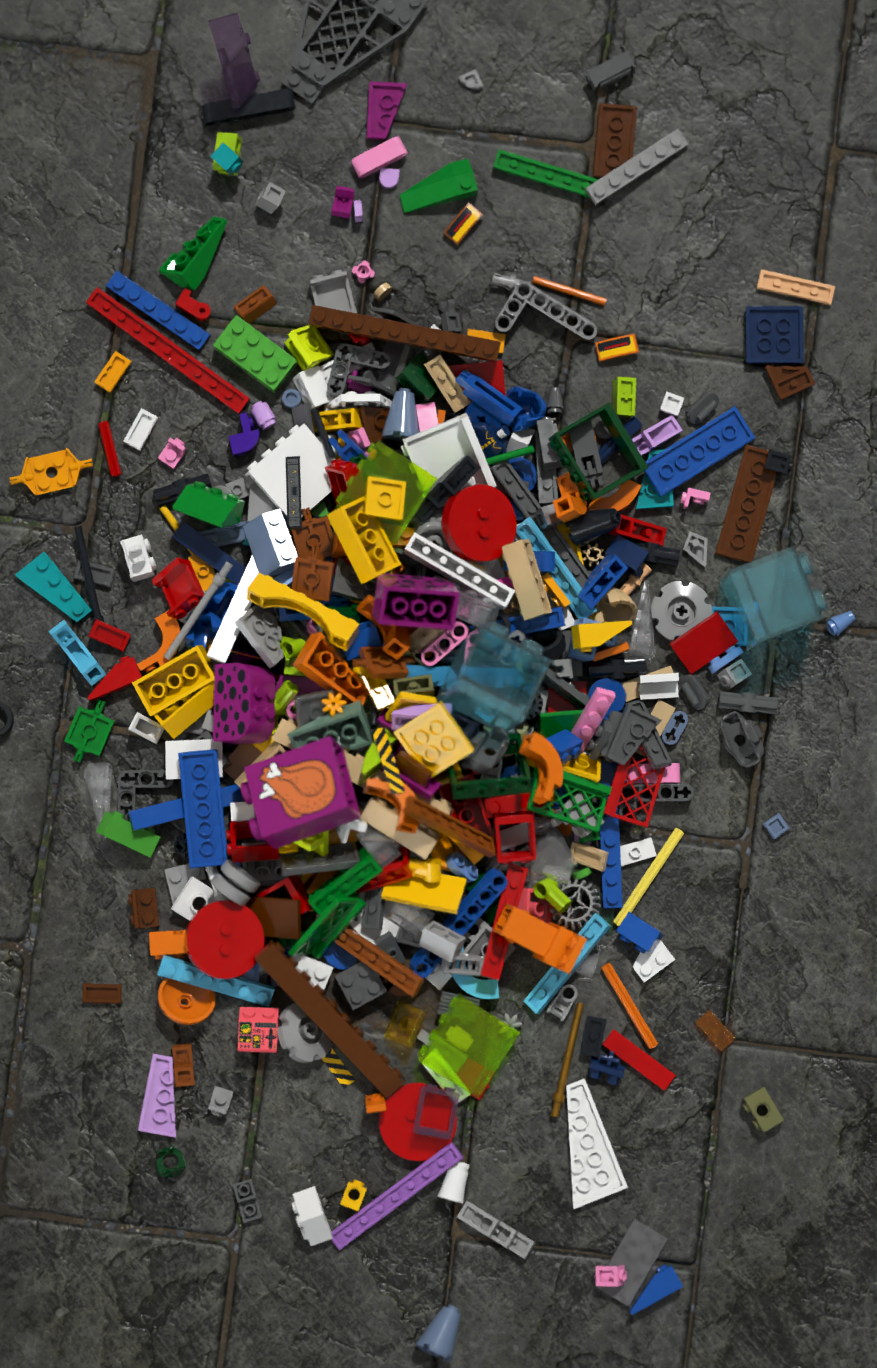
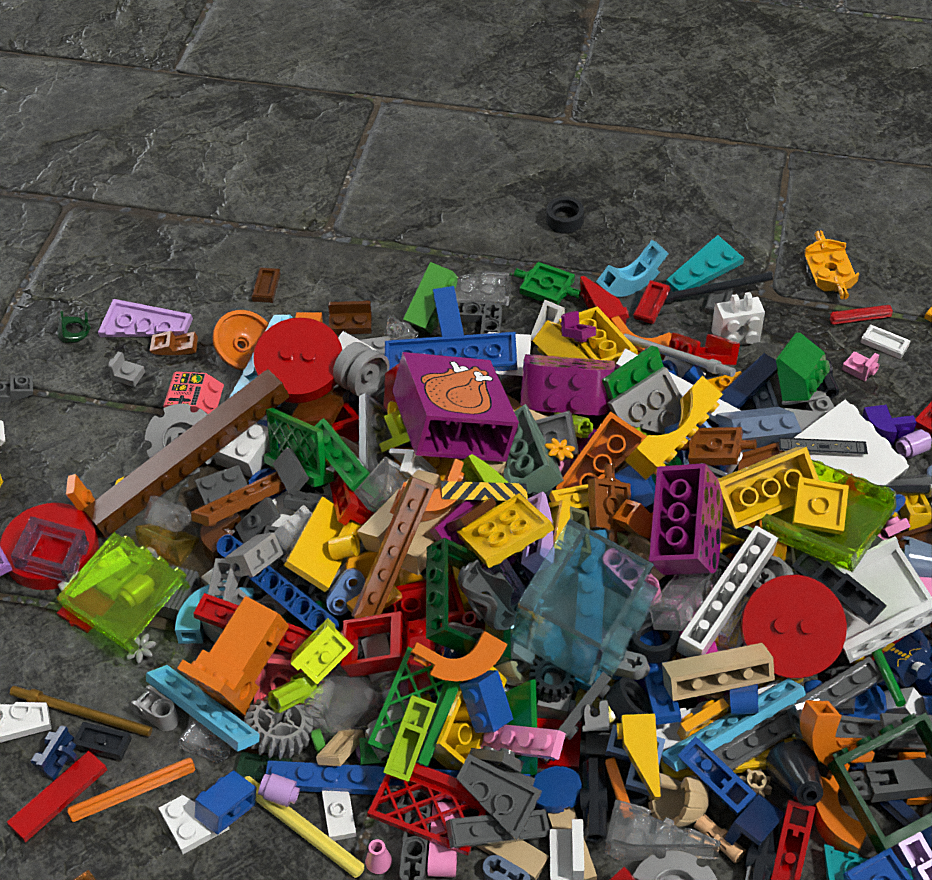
camera: 100 degrees right, 35 degrees down
(161, 860) = (399, 330): none -> clear bracket
(177, 698) = (572, 328): none -> magenta bracket
(239, 647) = (632, 372): none -> green plate
(350, 927) = (290, 471): none -> dark grey tile
(384, 1029) = (163, 514): none -> clear piece
(528, 877) = (321, 651): none -> neon yellow bracket
(594, 800) = (410, 738): none -> lime slope
(629, 895) = (279, 789): none -> lavender brick
(665, 818) = (378, 857): none -> bright pink cone

